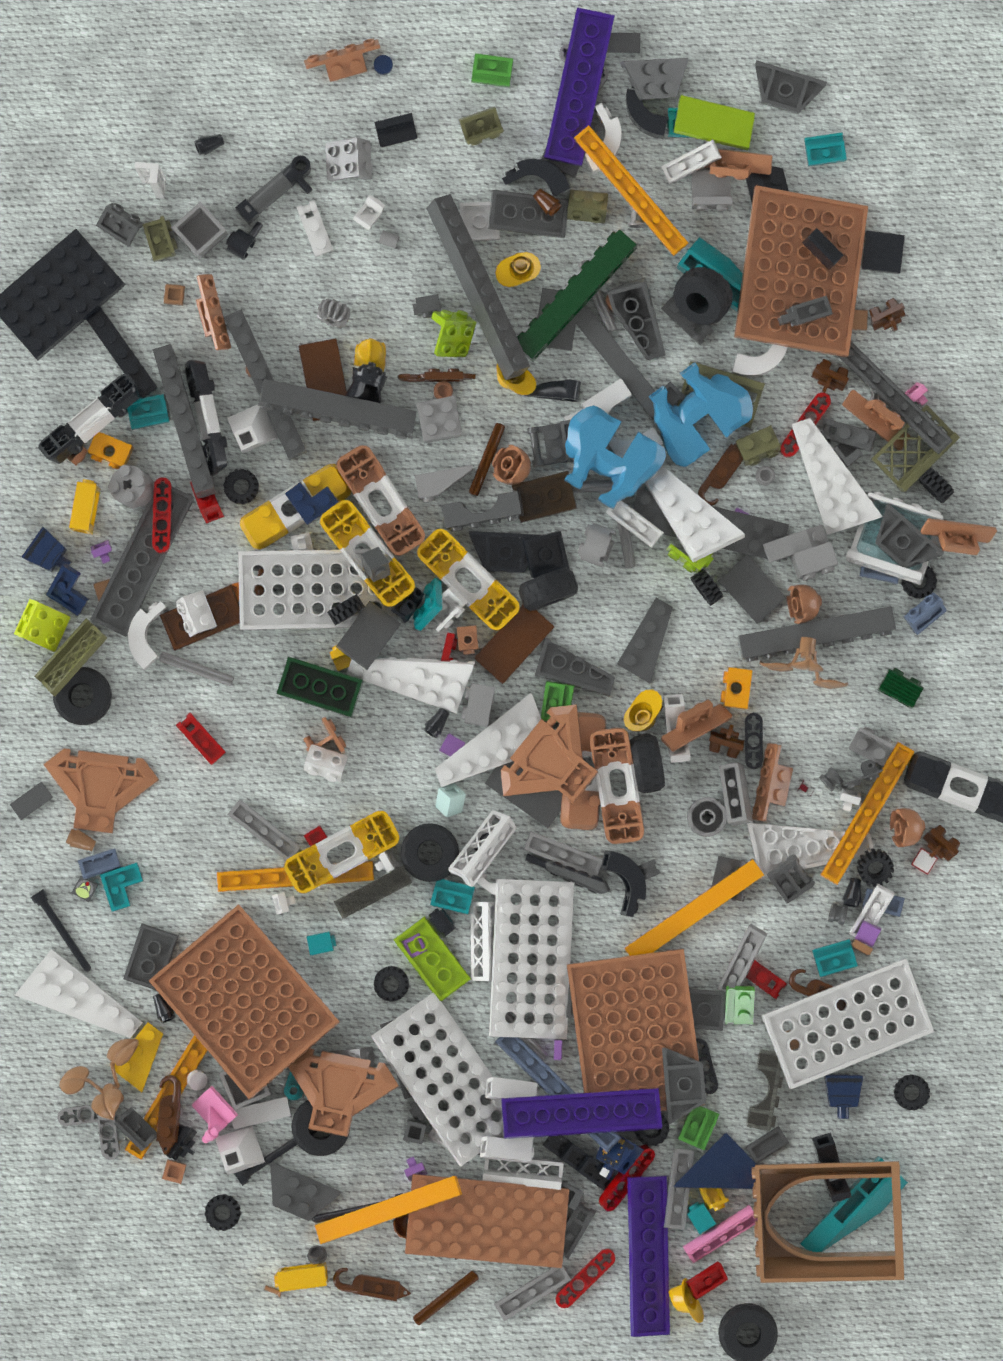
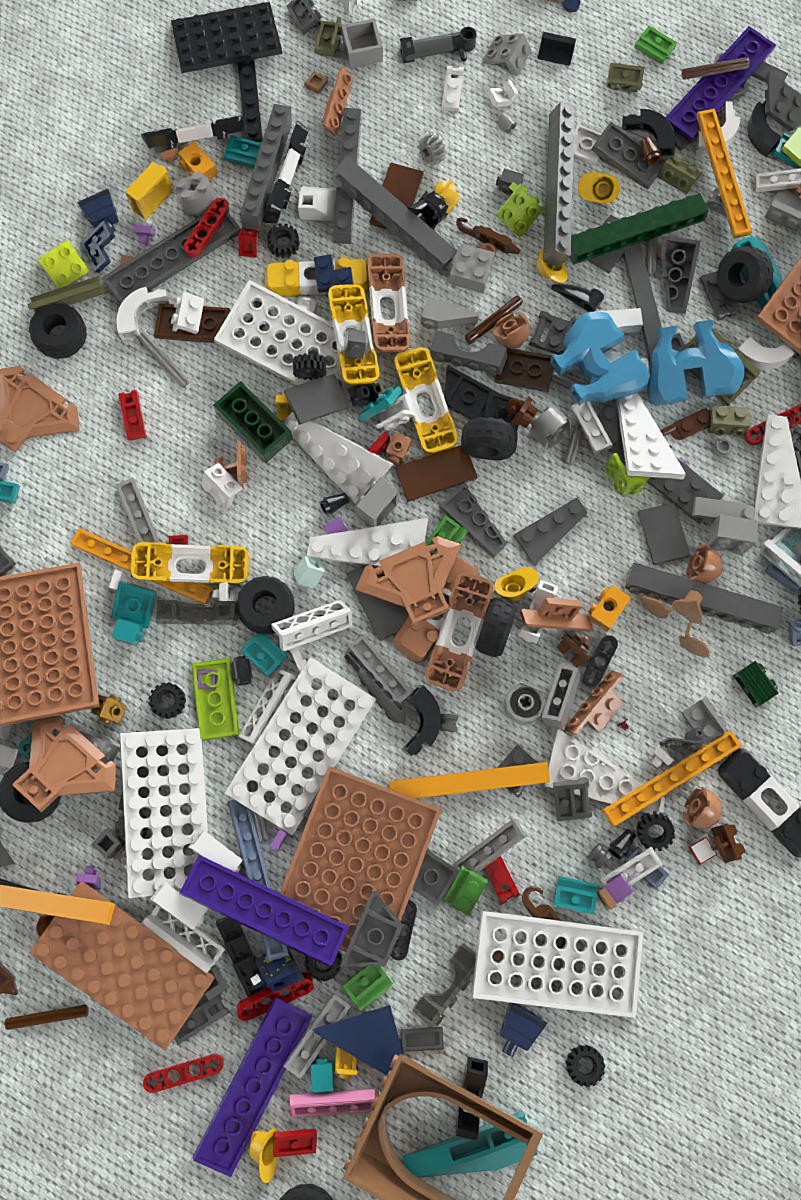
camera: 30 degrees right, 10 degrees down
(240, 241) = (387, 64): black piece -> none
(311, 915) = (134, 604): none -> teal tile
(349, 1017) = (110, 709): none -> pearl gold brick
(532, 1292) = (127, 1058): light grey plate -> none
(562, 548) = (523, 413): none -> reddish brown hips
(567, 77) = (715, 68): none -> reddish brown axle
(707, 587) = (626, 508): black tyre -> none
(831, 779) = (653, 730): dark grey wheel -> none

